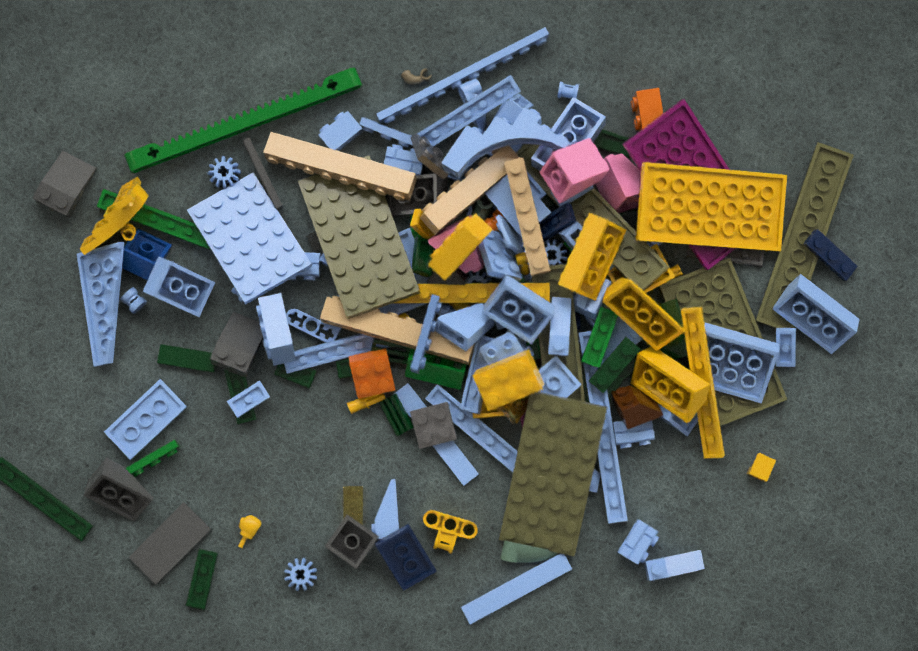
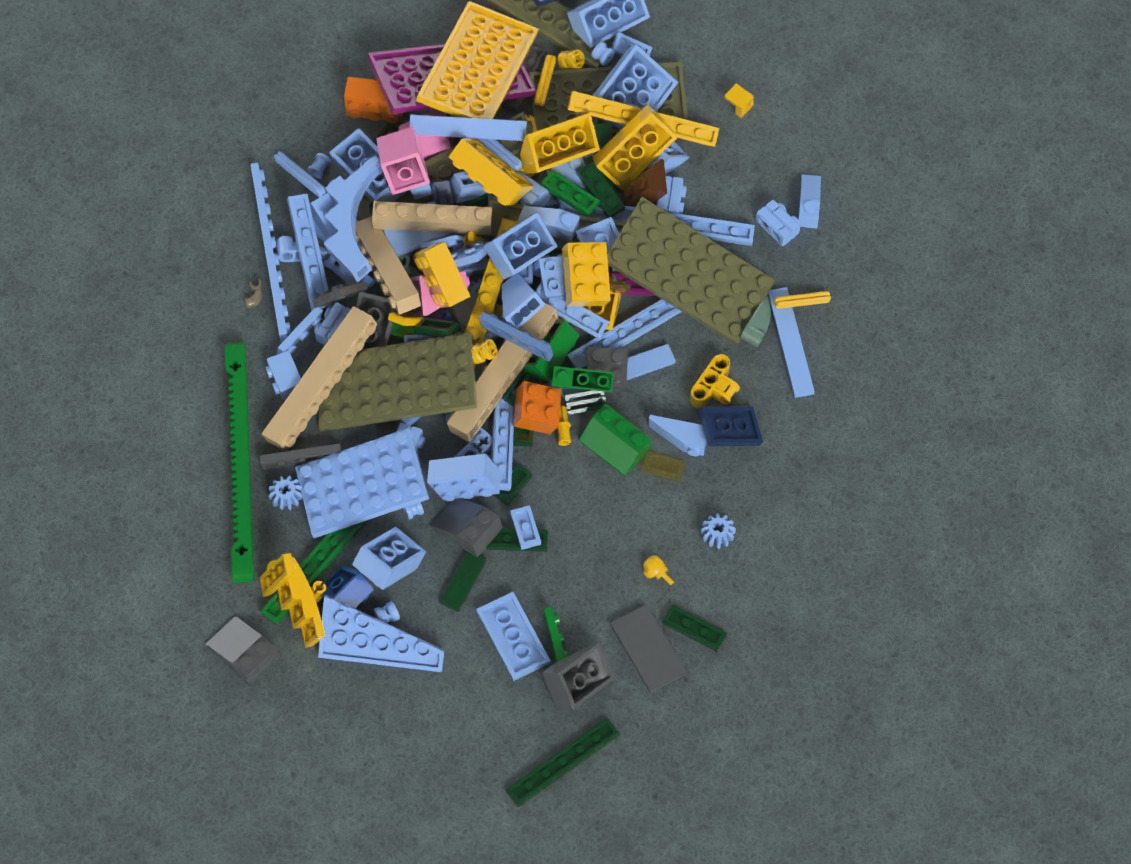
camera: 70 degrees left, 20 degrees down
(352, 541) = (700, 471): dark grey slope -> none
(363, 454) = (615, 440): none -> green slope
(405, 308) = (484, 351): none -> yellow wheel
(409, 405) = (582, 379): none -> green slope
(545, 76) = (301, 175): none -> light blue axle
(561, 587) = (802, 299): none -> yellow axle
(620, 257) = (502, 153): none -> light blue axle
(629, 221) = (469, 127): none -> light blue tile
(720, 275) = (544, 81): none -> yellow axle
(755, 292) = (571, 59): none -> yellow wheel
(768, 322) = (603, 53): none -> light blue wheel

